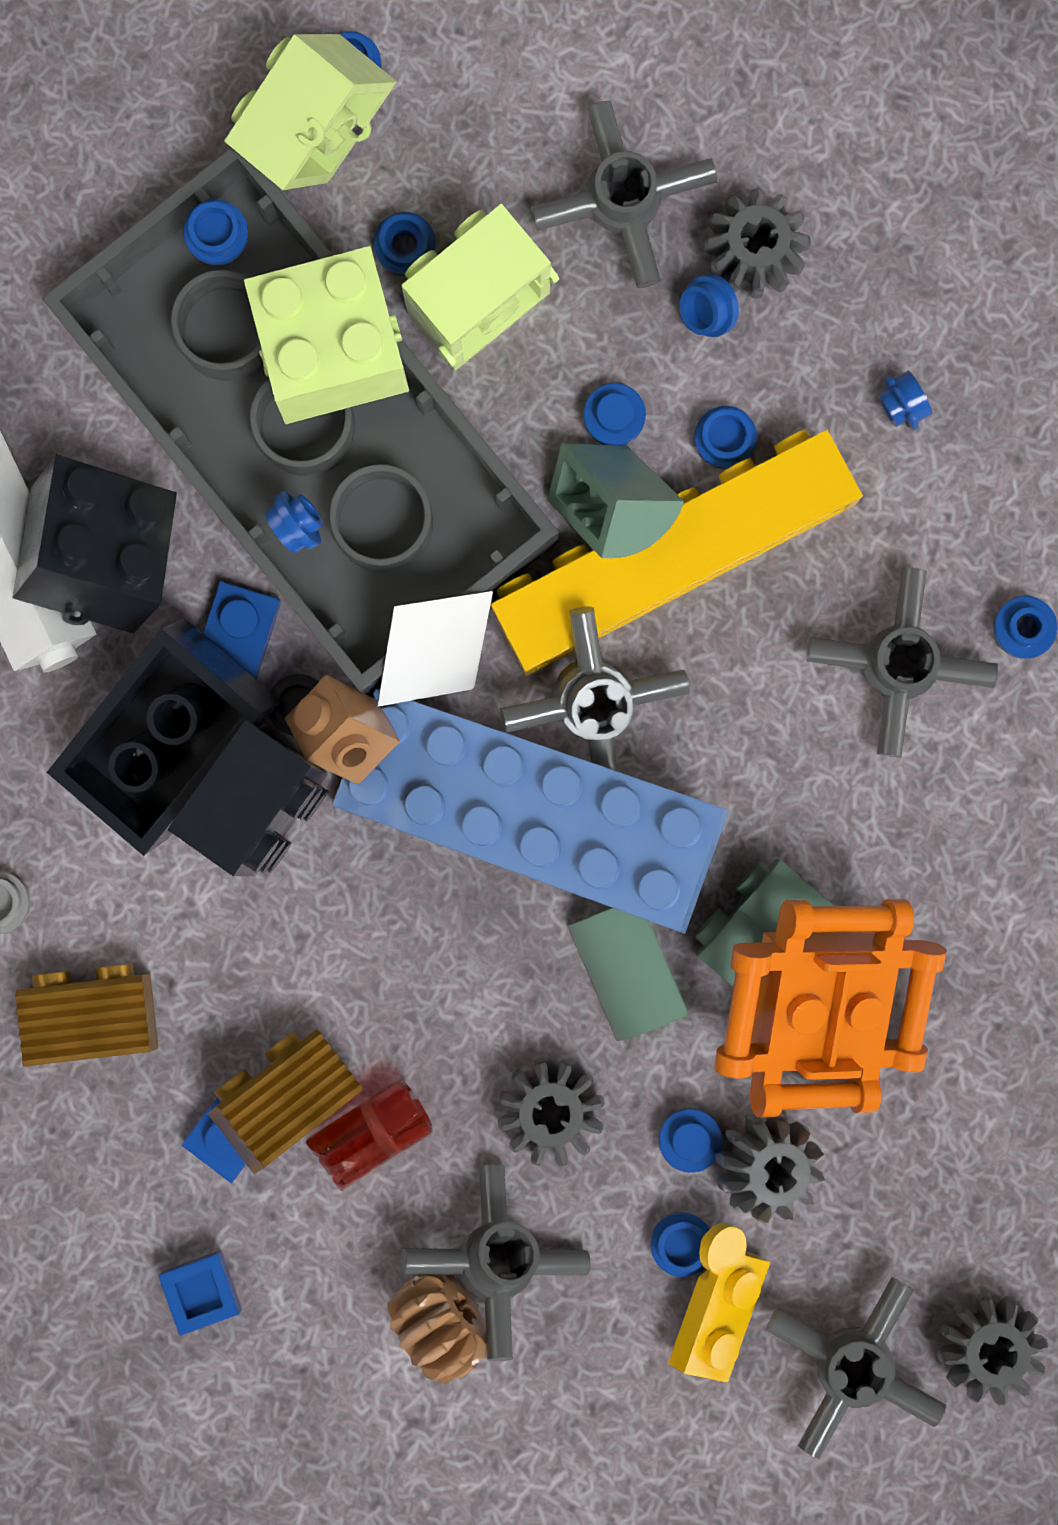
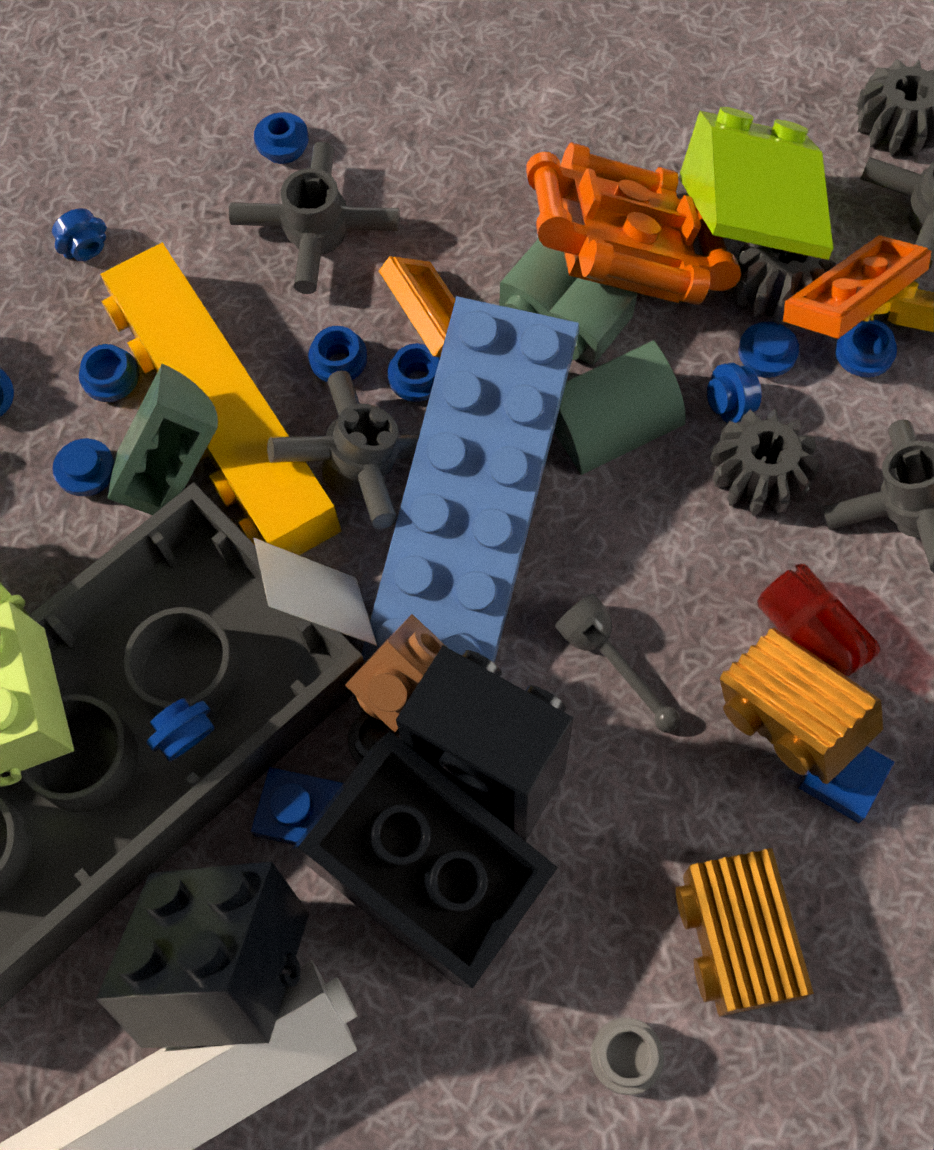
camera: 90 degrees left, 20 degrees down
(390, 914) = (589, 628): none -> dark grey hinge
(636, 1093) = (733, 391): none -> blue plate
(716, 764) = (407, 360): none -> blue plate
(726, 1237) = (857, 286): none -> orange tile
(740, 667) = (333, 341): none -> blue plate
(771, 783) = (422, 297): none -> light orange tile
(859, 1151) = (759, 182): none -> lime slope

